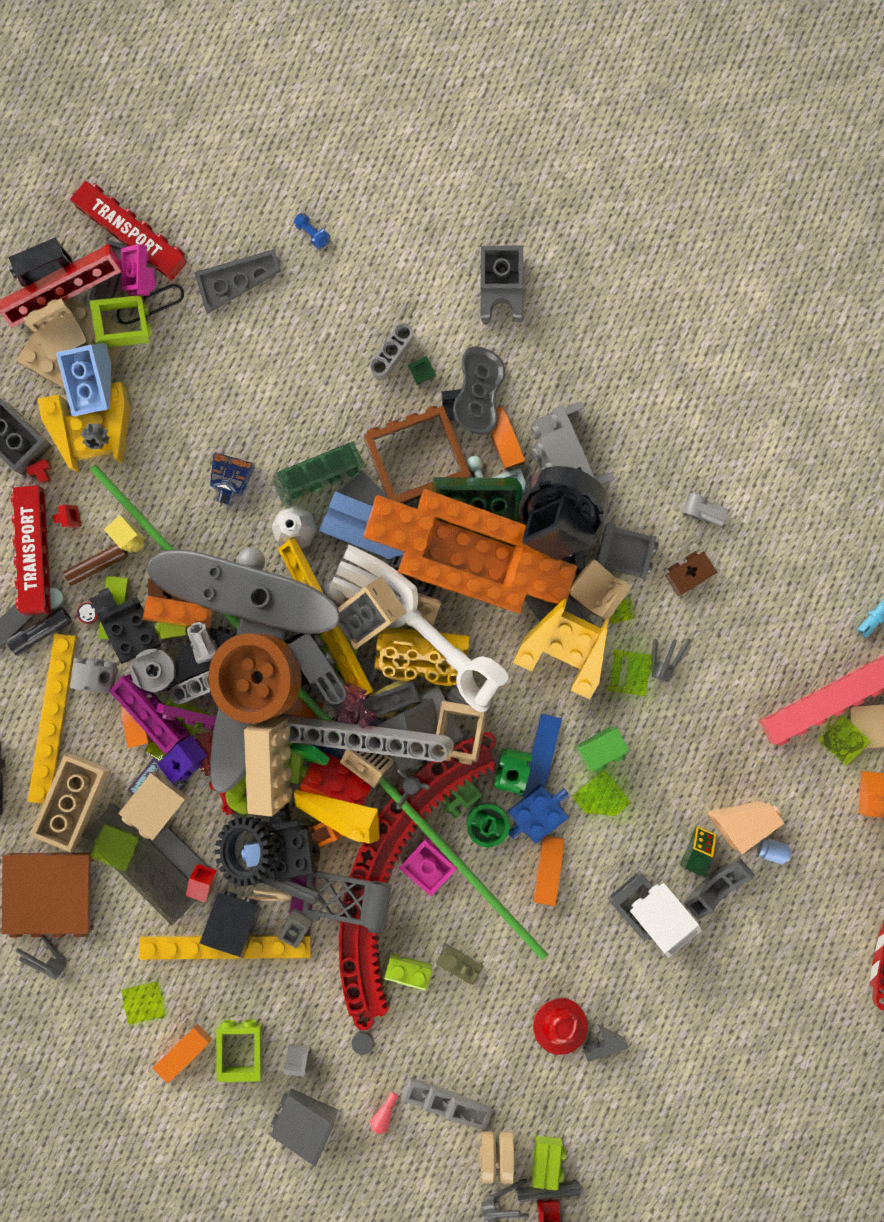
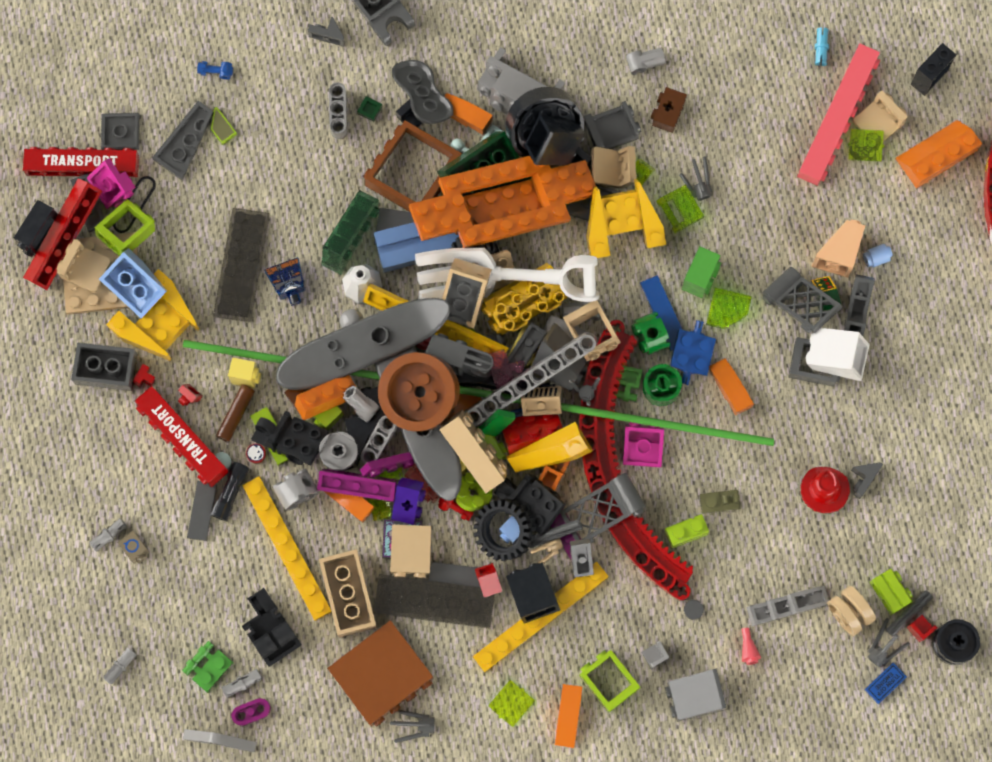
camera: 35 degrees left, 10 degrees down
(95, 436) = (170, 318): dark grey gear -> none
(114, 847) = (405, 602): clear neon green piece -> none
(186, 226) = (120, 131): none -> dark grey tile
(202, 431) = (241, 265): none -> clear smoke plate
(278, 289) = (221, 127): none -> olive tile
(440, 274) = (330, 35): none -> dark grey slope
(667, 817) = (786, 288): none -> dark grey piece

